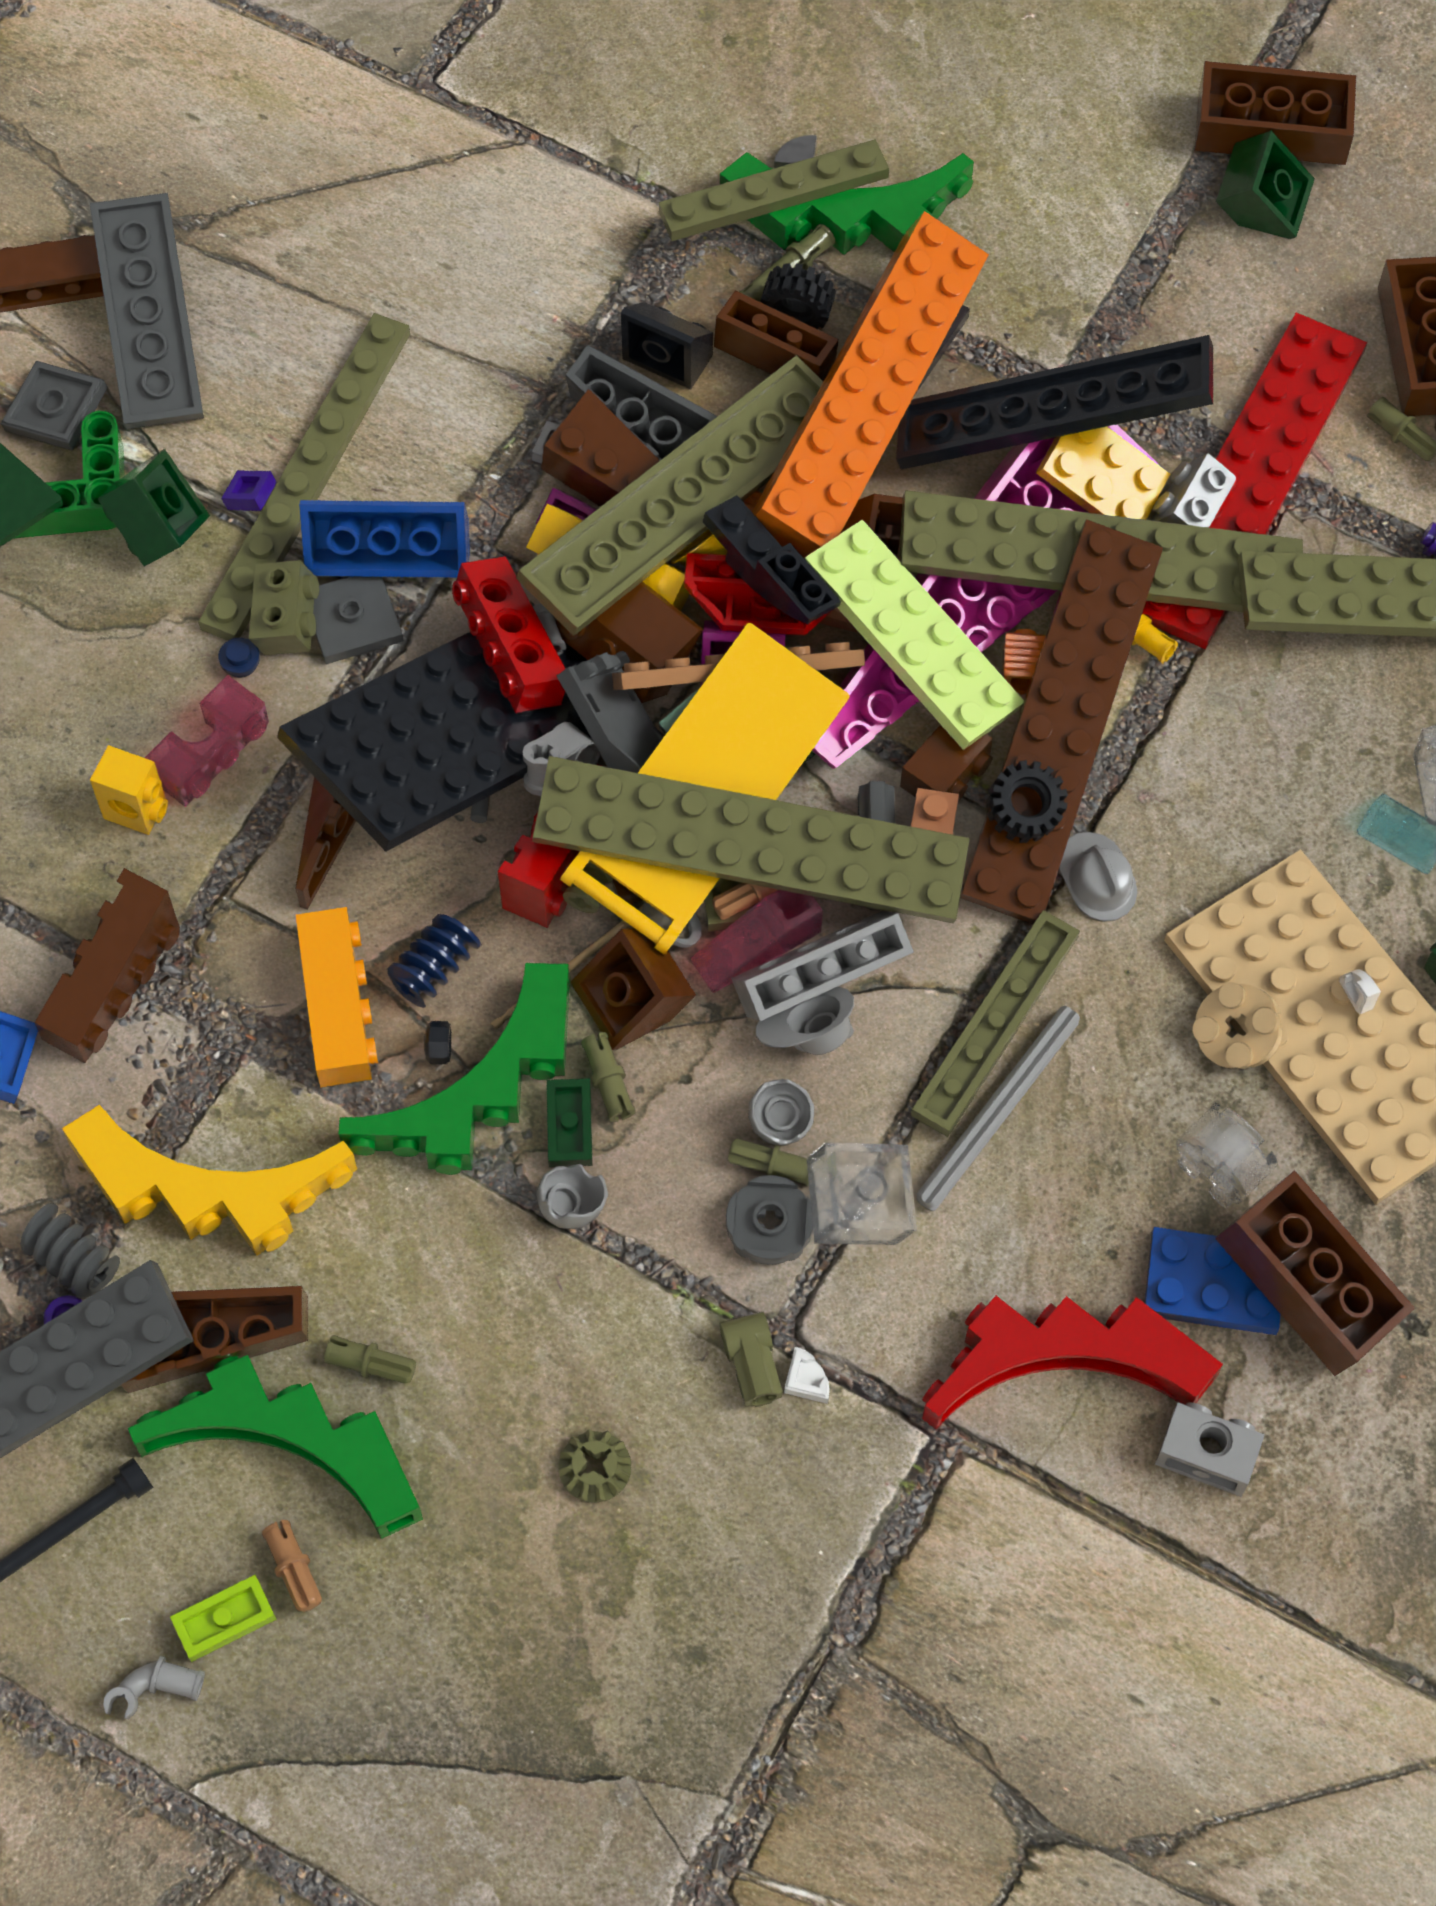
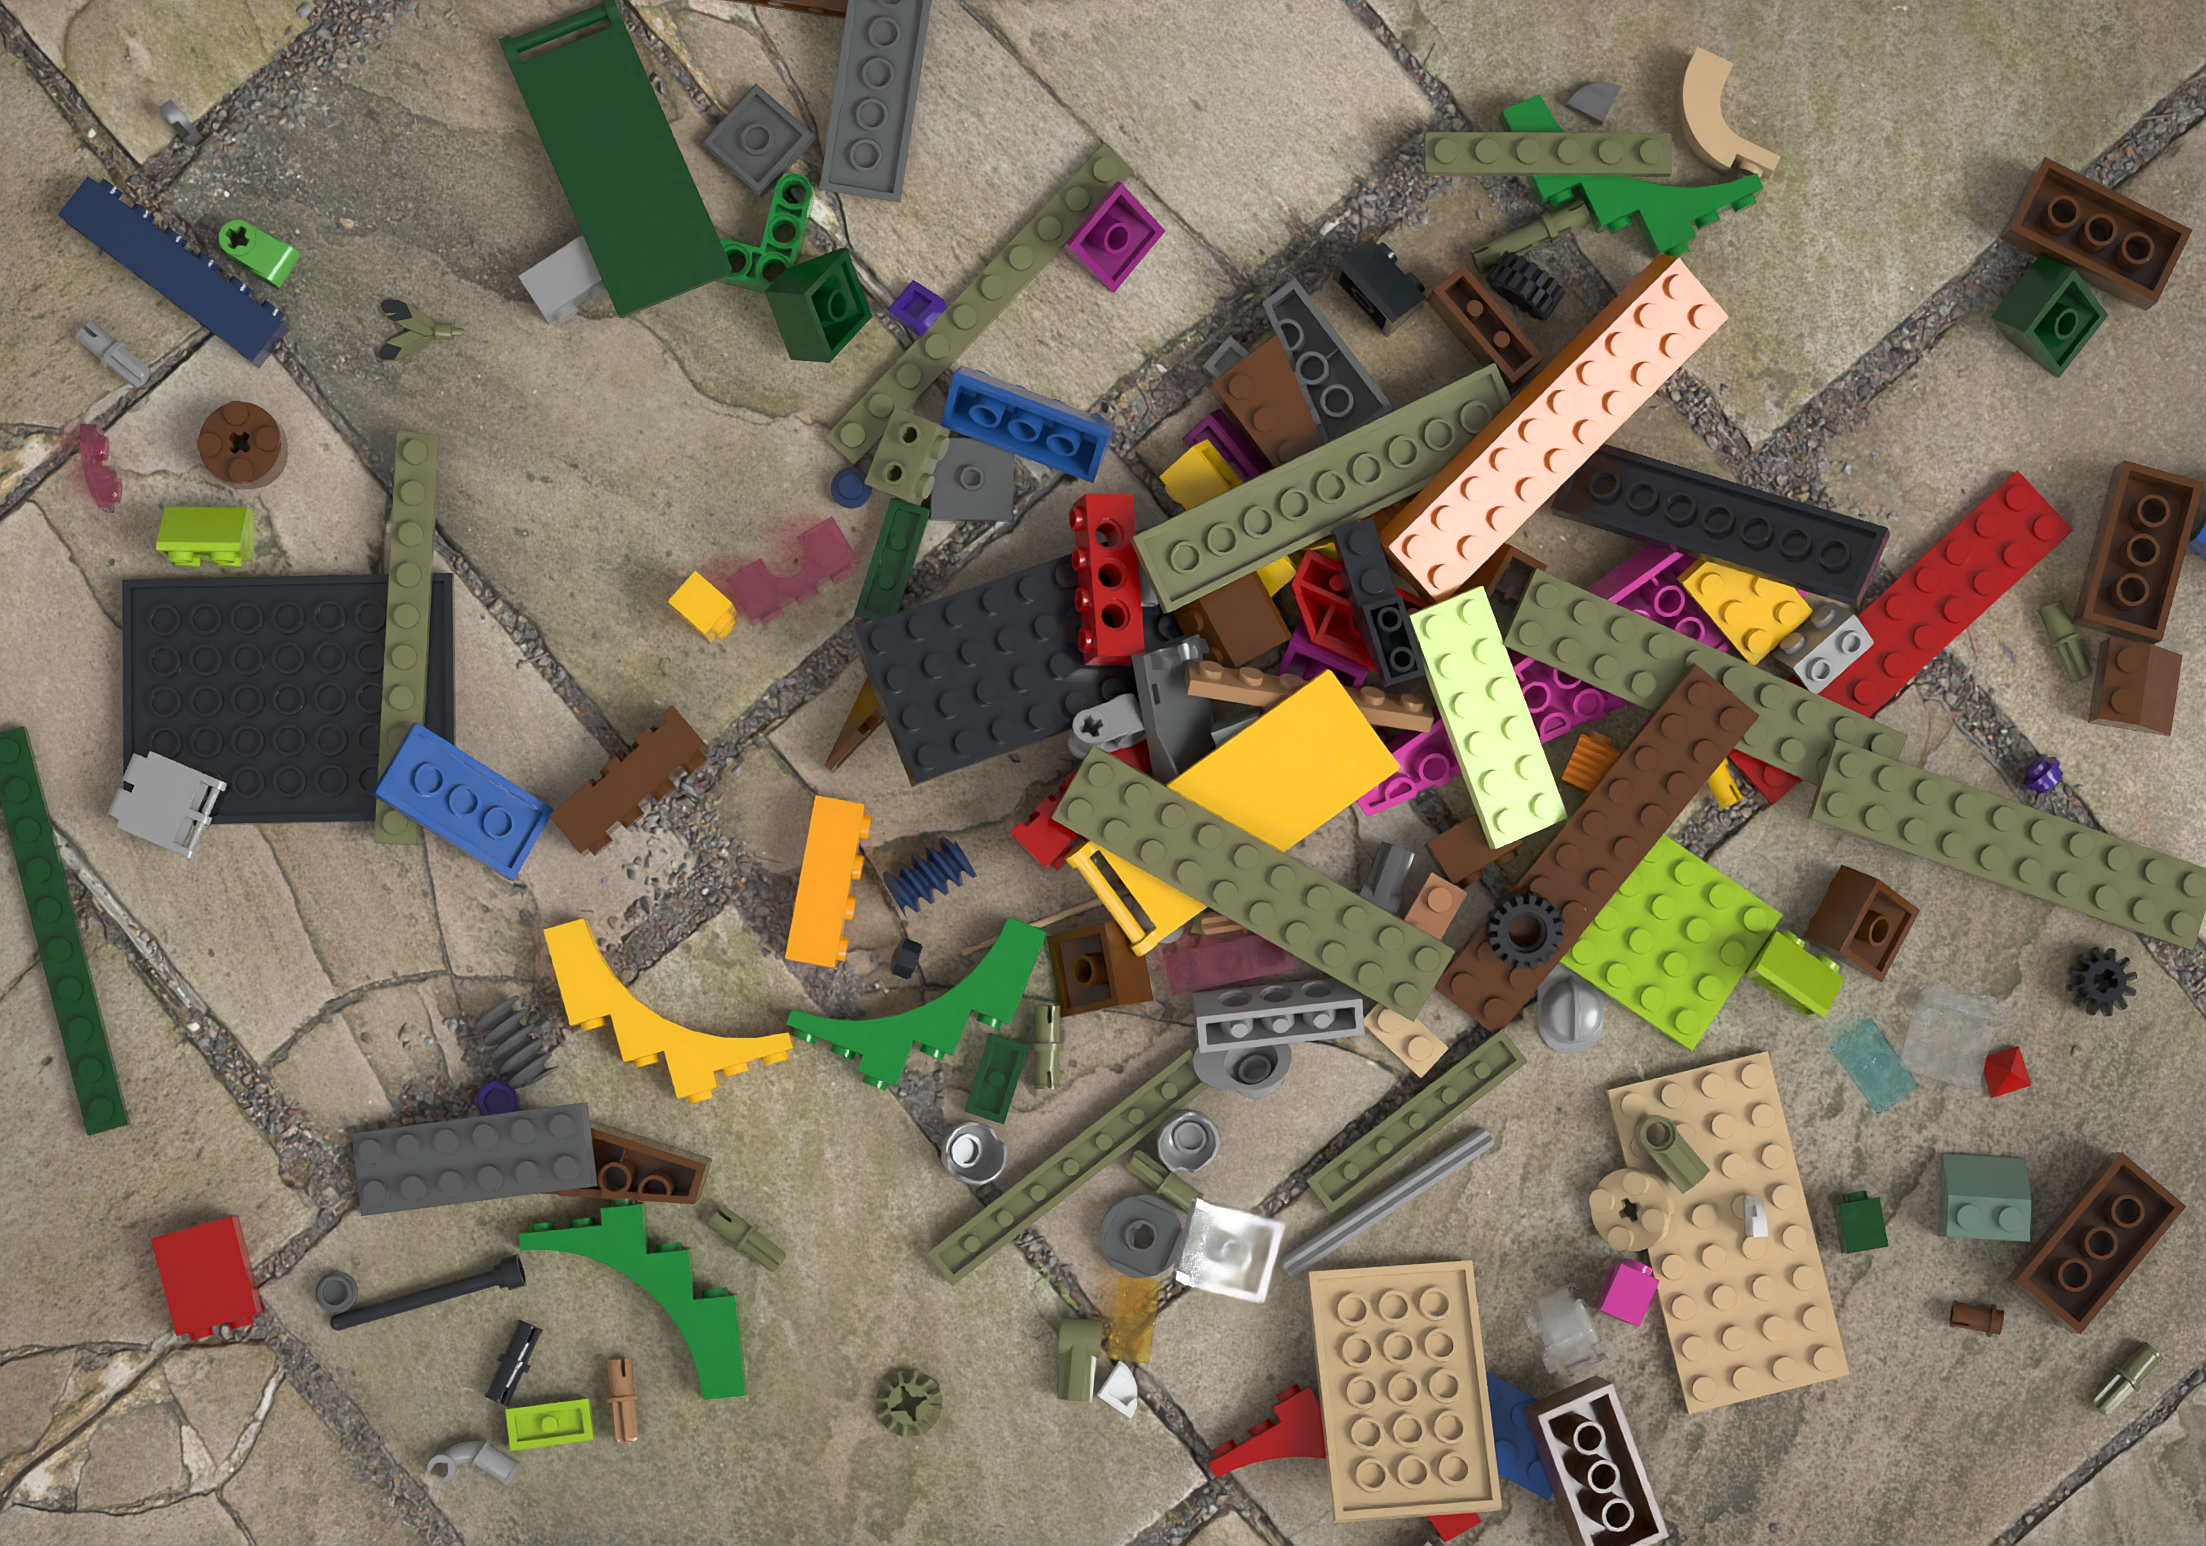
camera: 15 degrees right, 20 degrees up
(164, 1569) = (513, 1363): none -> black pin
(299, 688) = (892, 560): none -> dark green plate
(408, 379) = (1113, 237): none -> magenta slope
(670, 1184) = (1068, 1169): none -> olive plate
(793, 1301) = (1133, 1319): none -> clear yellow plate
(902, 139) = (1705, 126): none -> tan arch
(952, 953) = (1405, 1039): none -> tan plate
(1092, 1265) = (1403, 1391): none -> tan plate
(1167, 788) = (1673, 942): none -> lime plate
(1253, 958) = (1672, 1154): none -> olive piece
(1269, 1096) = (1626, 1291): none -> dark pink brick
(1295, 775) = (1796, 975): none -> lime slope
(1334, 710) = (1861, 922): none -> reddish brown slope

